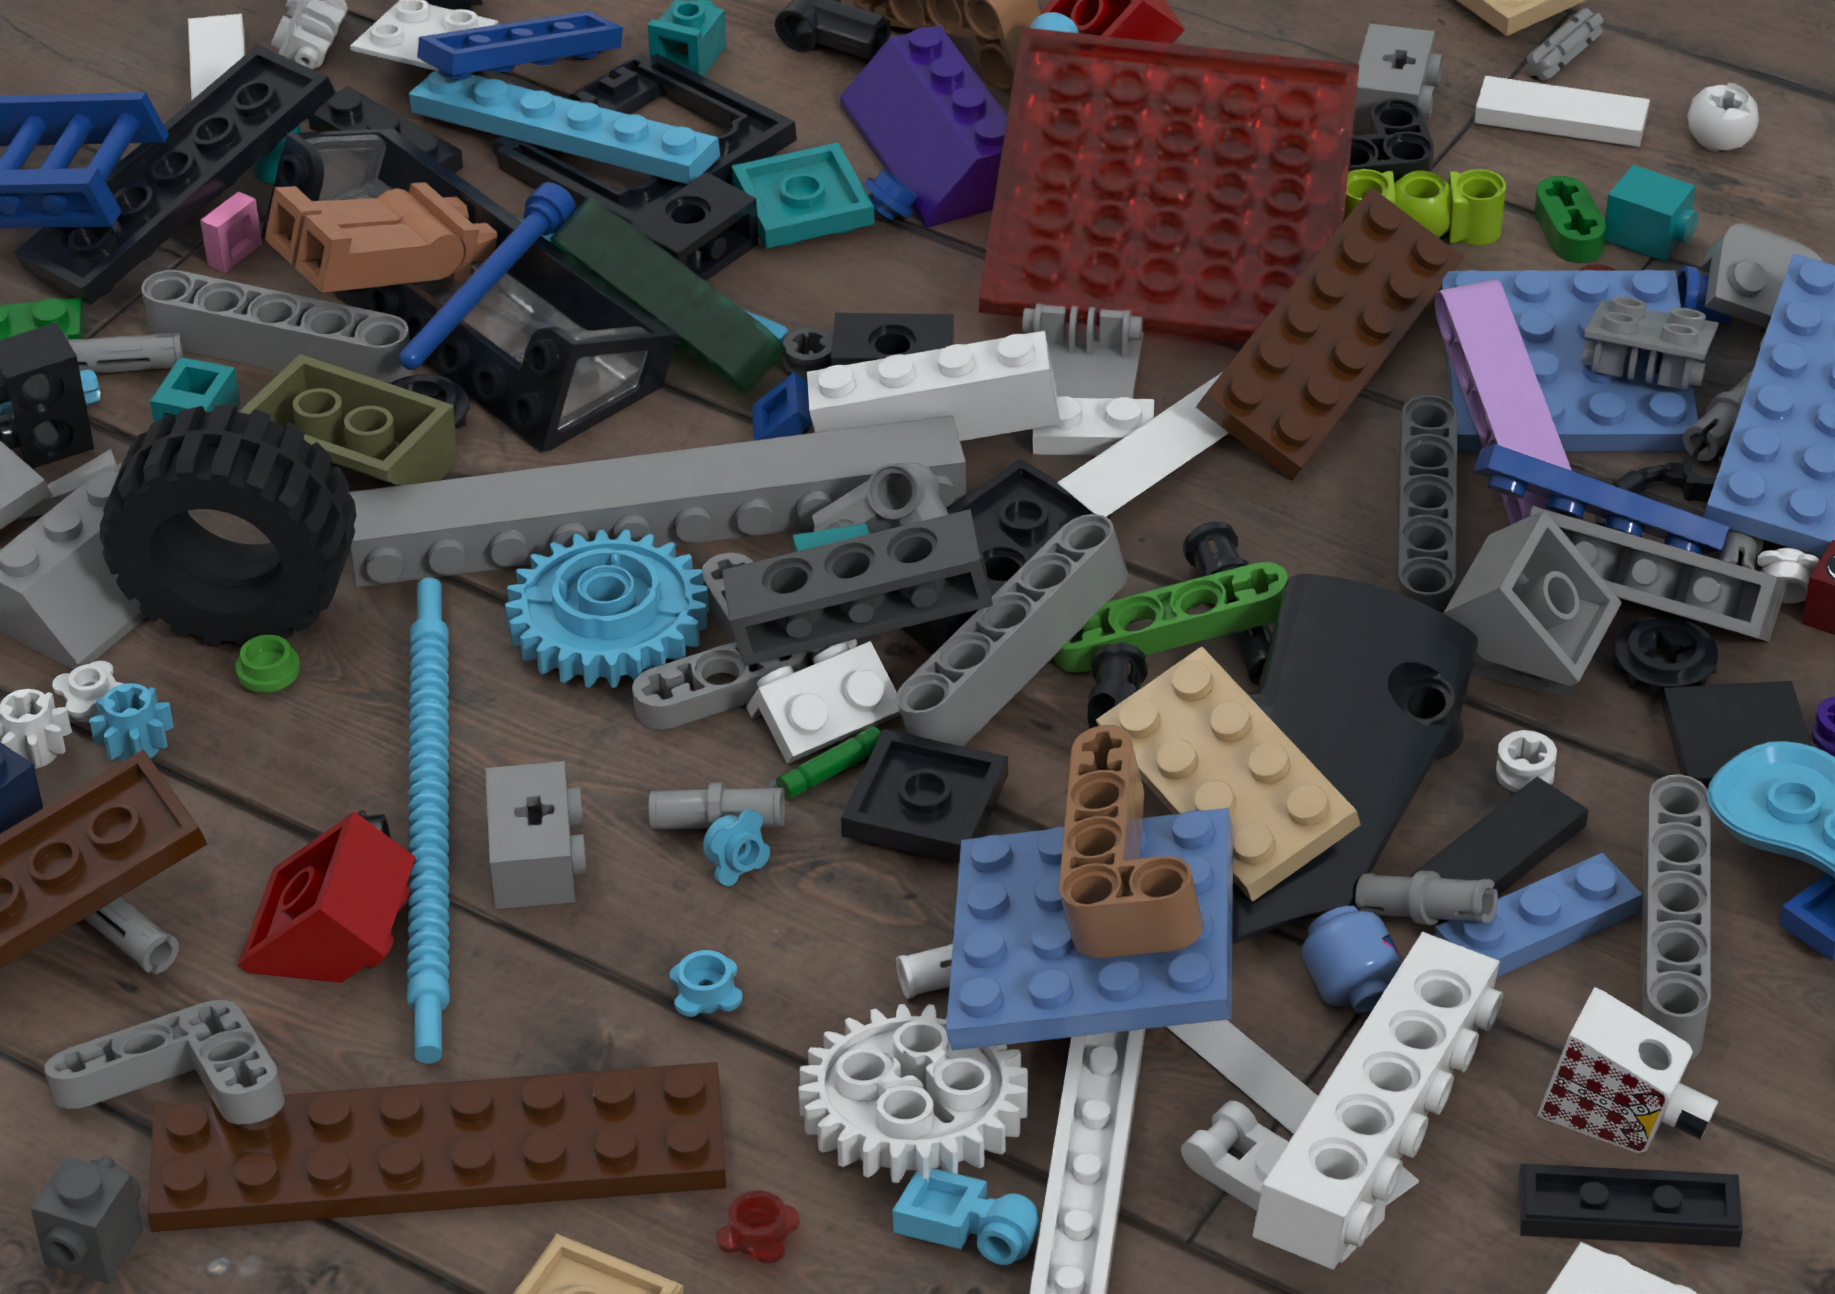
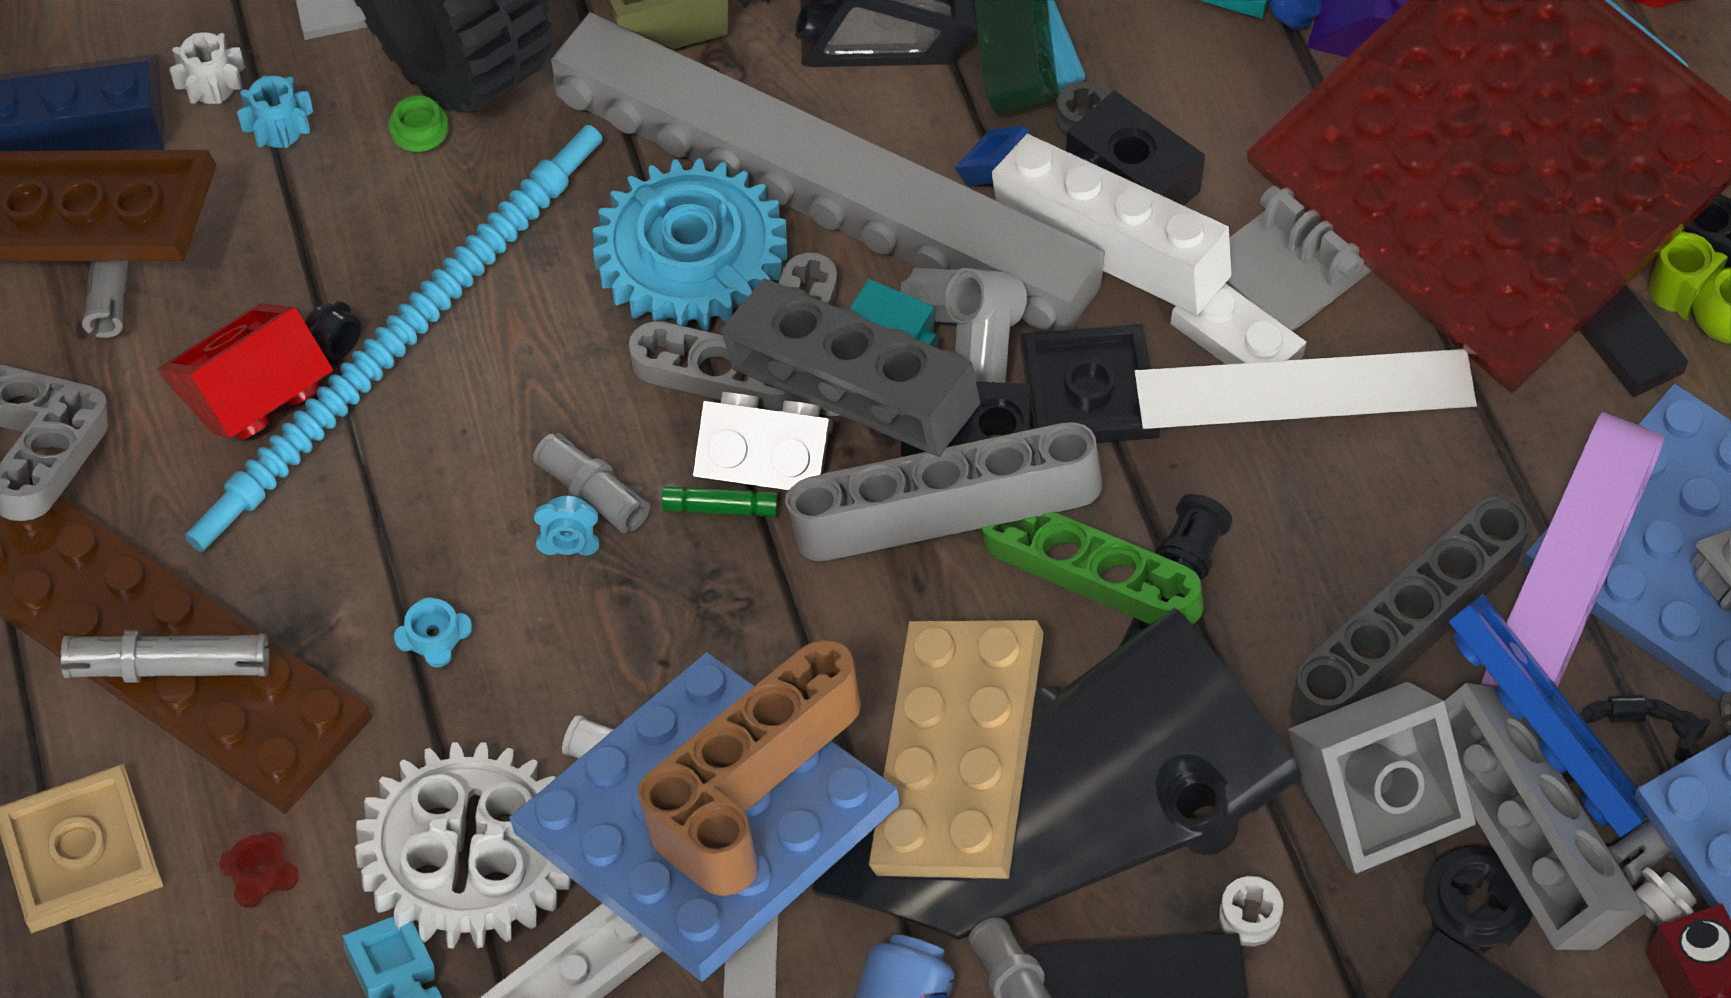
camera: 40 degrees right, 15 degrees up
(84, 687) = (284, 59): white plate -> none
(499, 1134) = (140, 656): none -> light grey pin
(531, 835) = (437, 408): light grey brick -> none
(924, 795) = (748, 586): black plate -> none
(1112, 677) = (992, 593): black piece -> none
(1329, 333) = (1510, 380): reddish brown plate -> none

